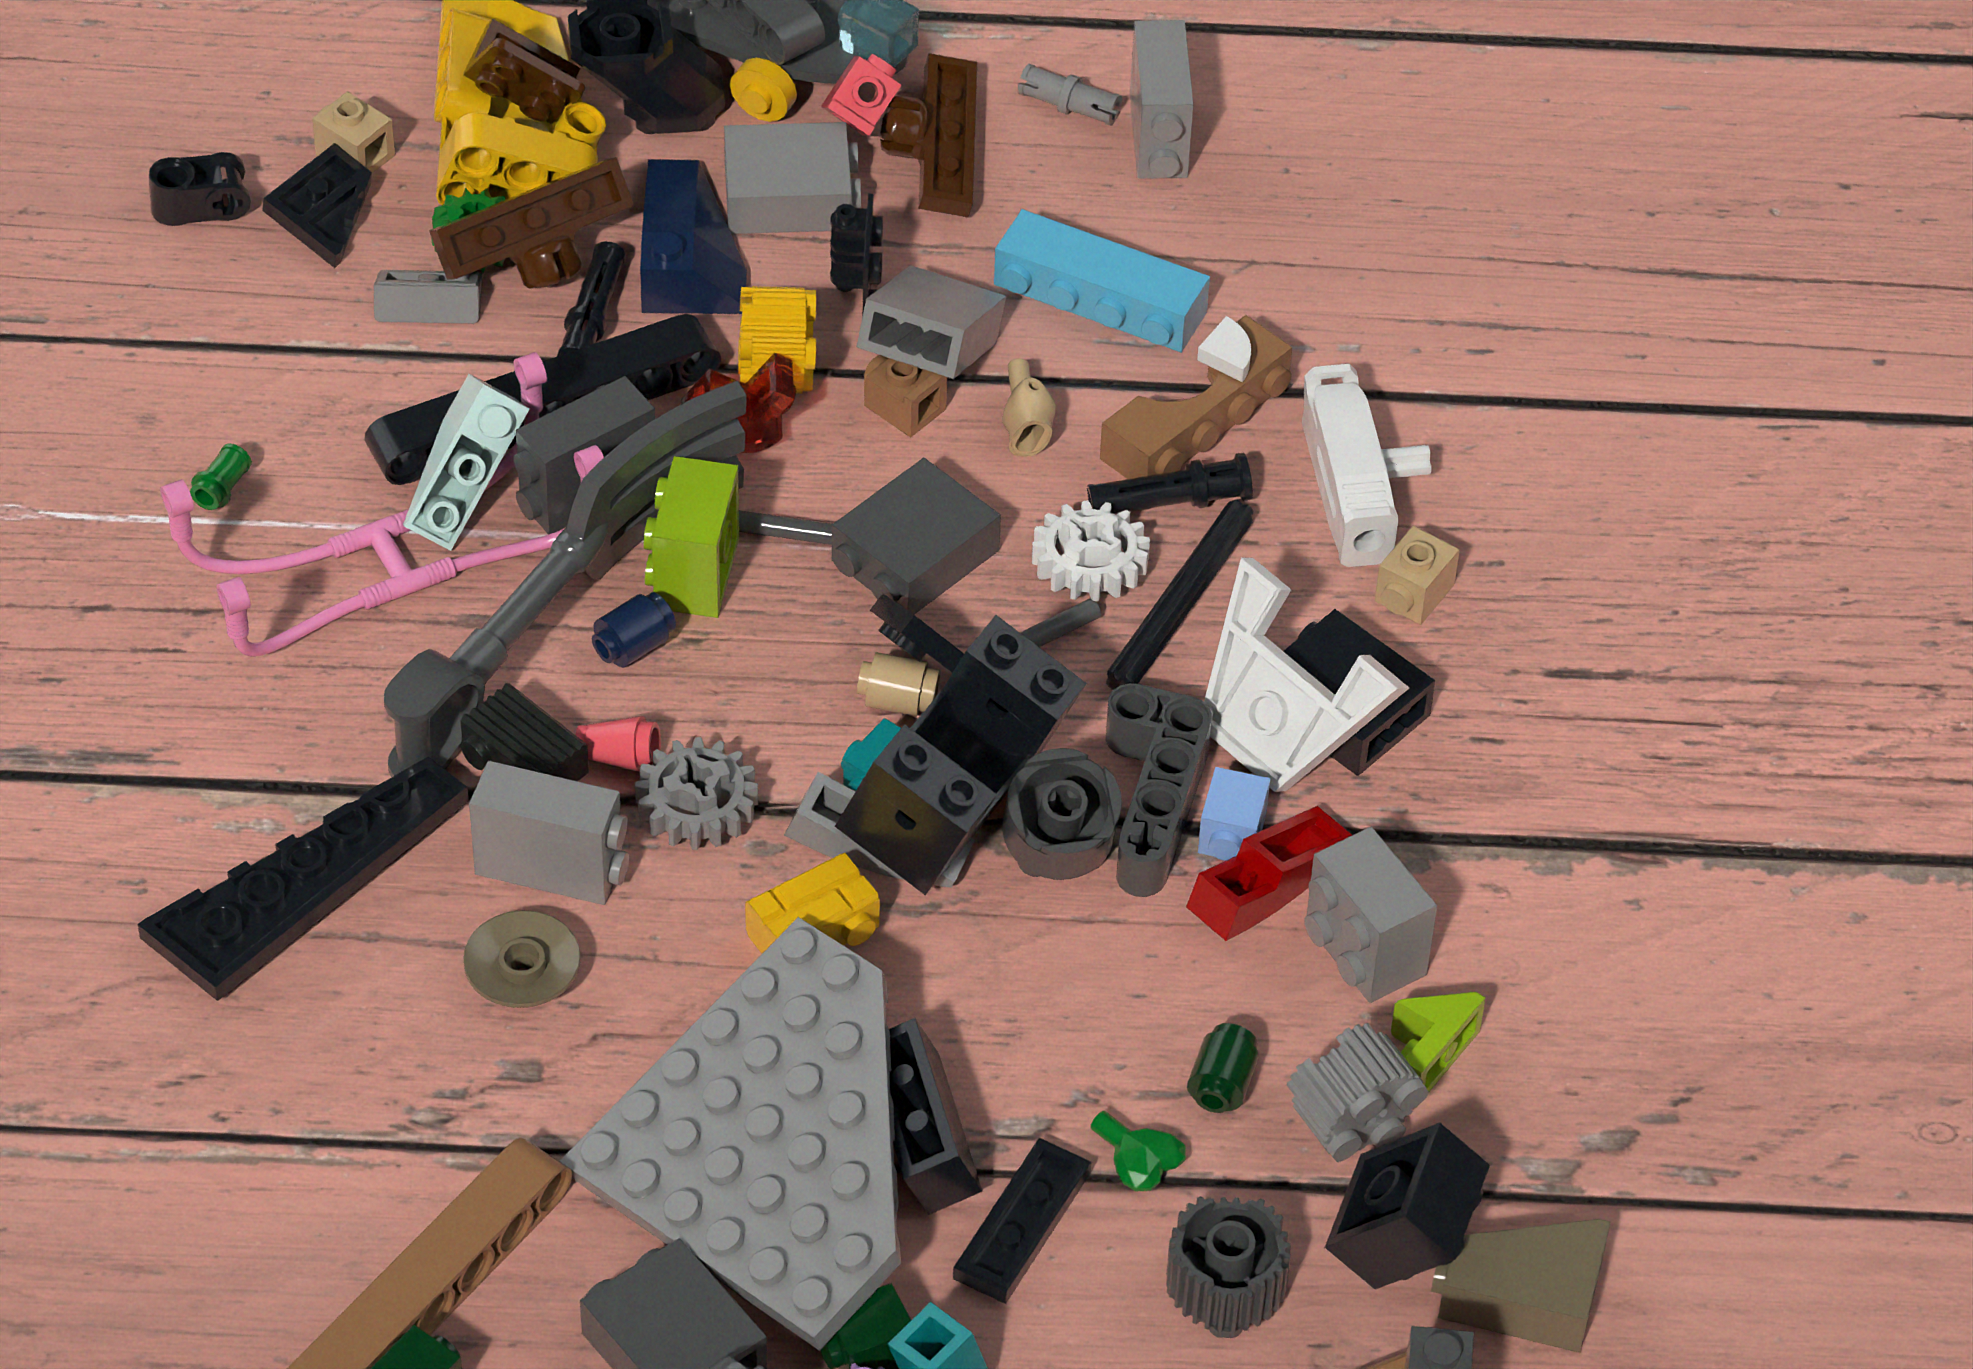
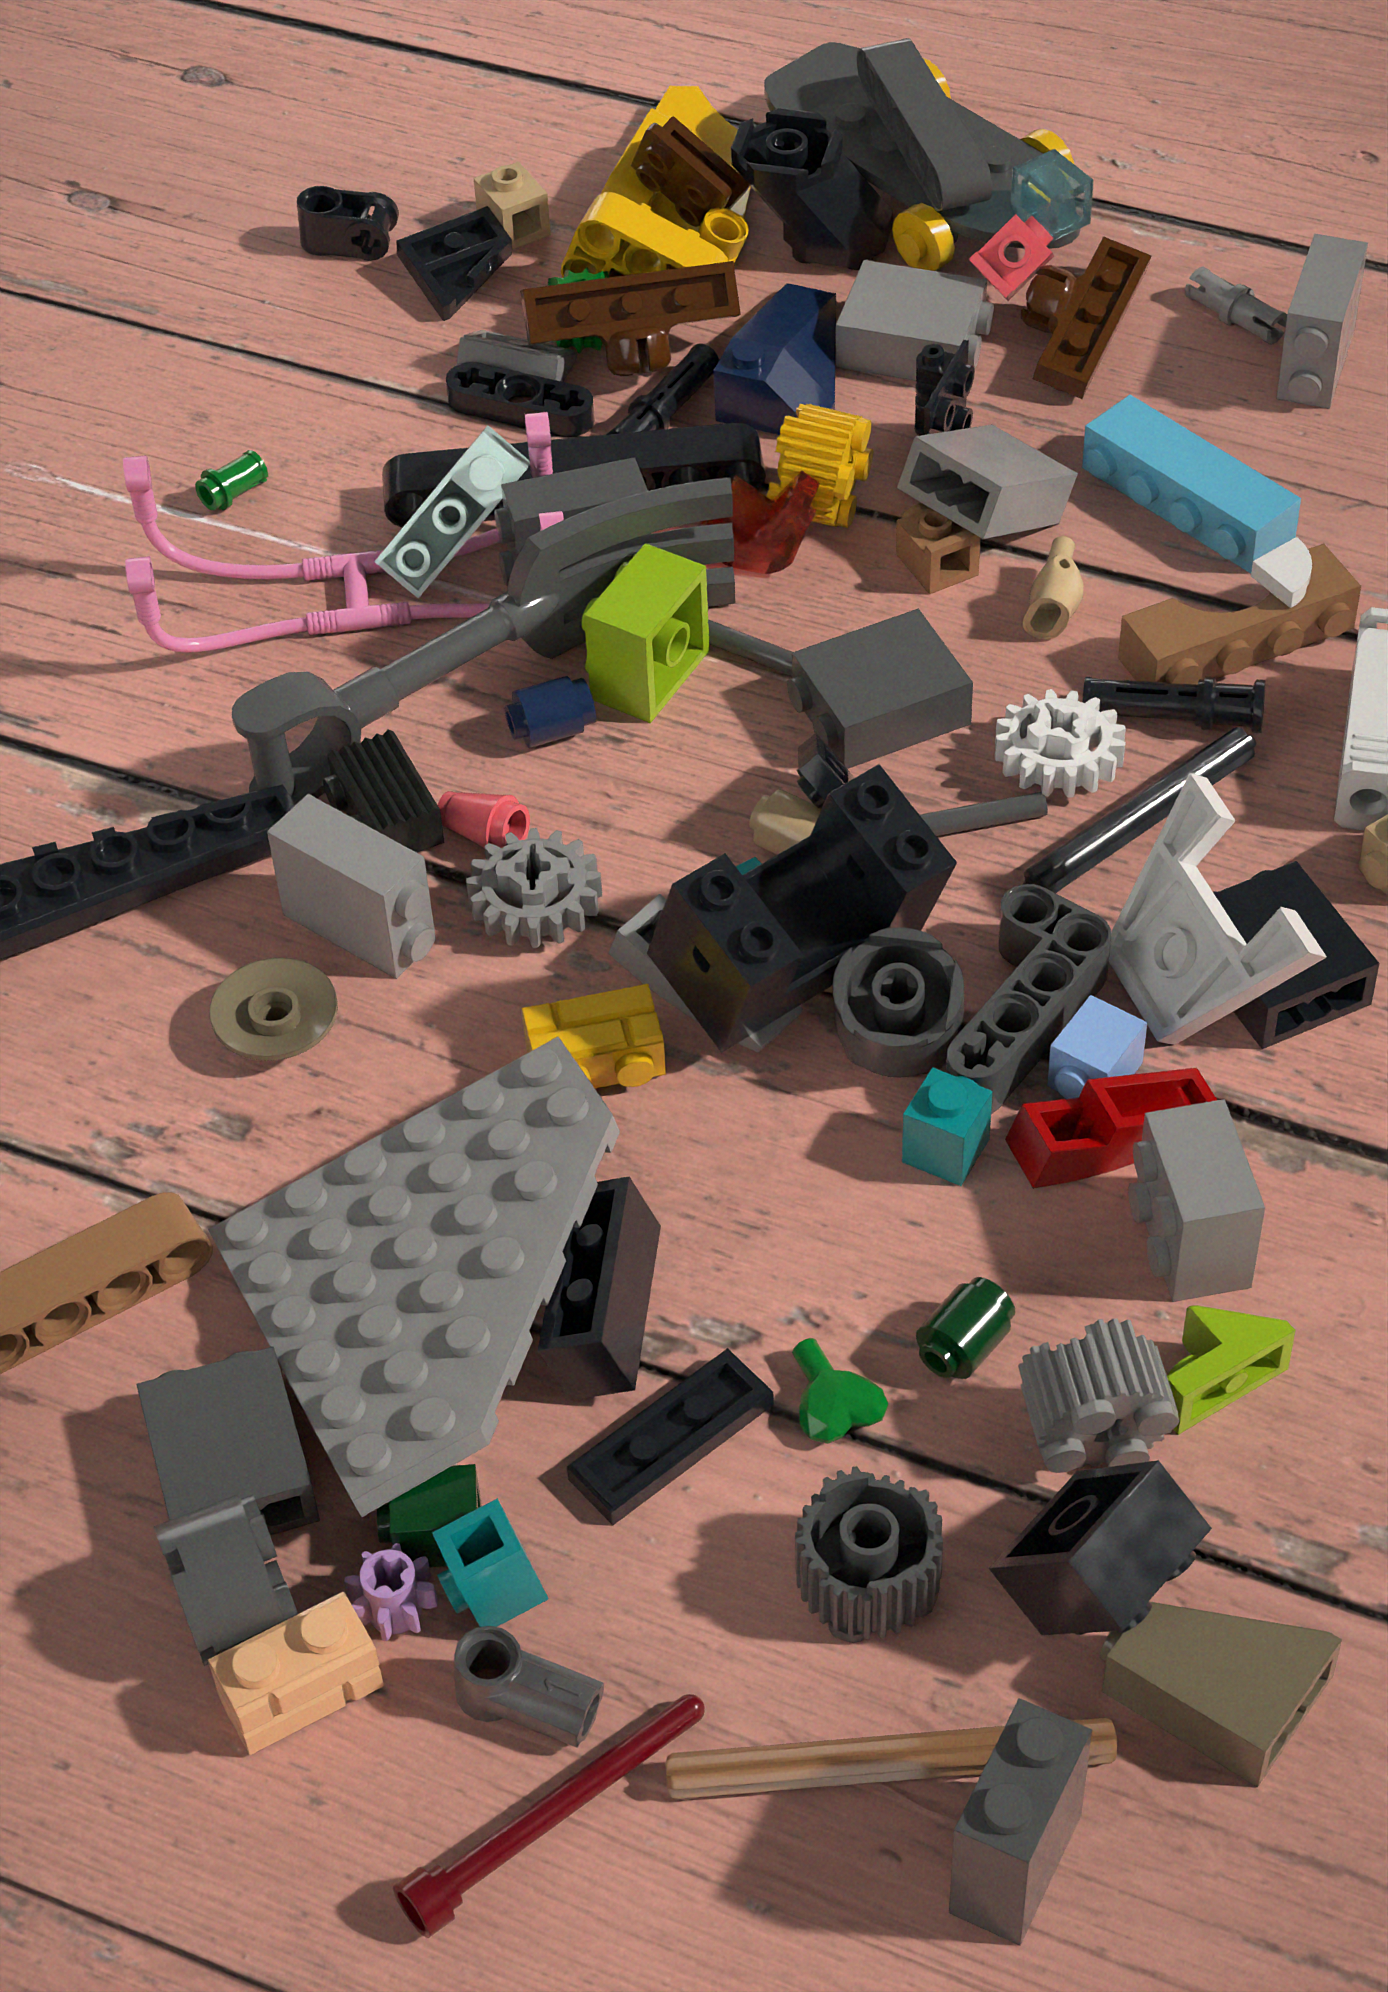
camera: 25 degrees right, 0 degrees up
(468, 347) = (484, 393): none -> black beam
(1139, 908) = (946, 1126): none -> teal brick

